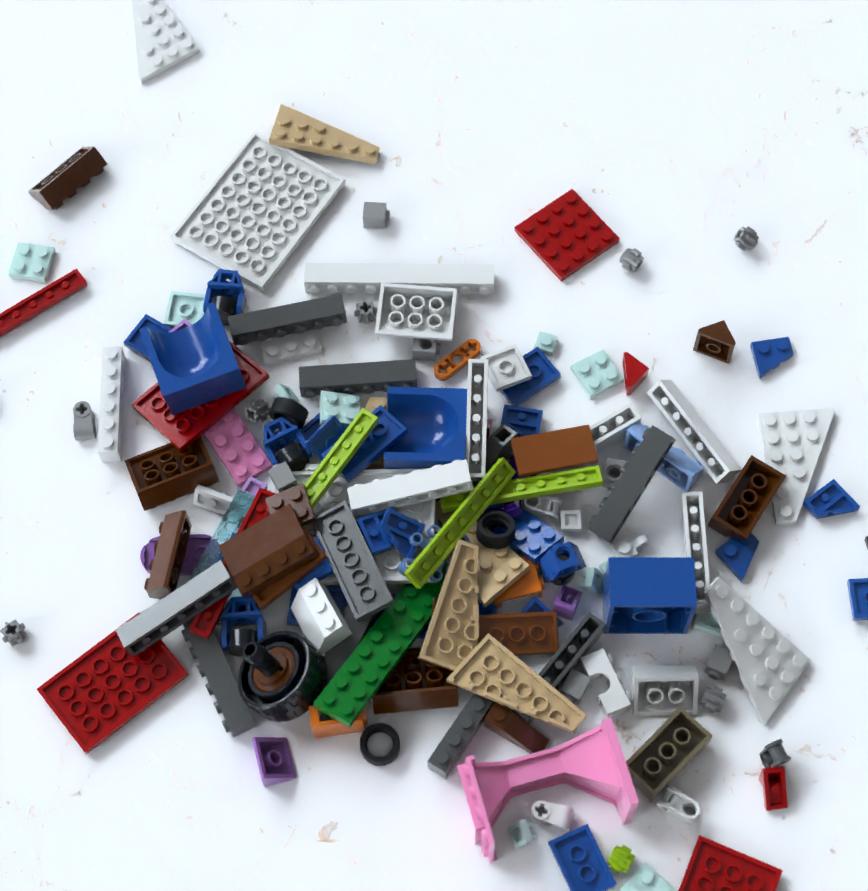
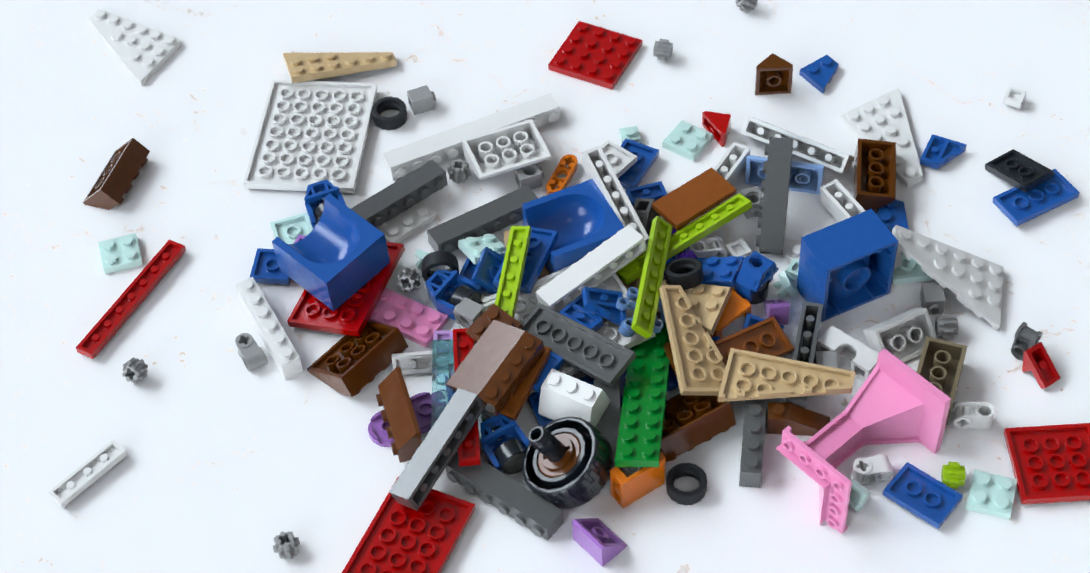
camera: 25 degrees left, 15 degrees down
(339, 204) = (385, 104): none -> black tyre

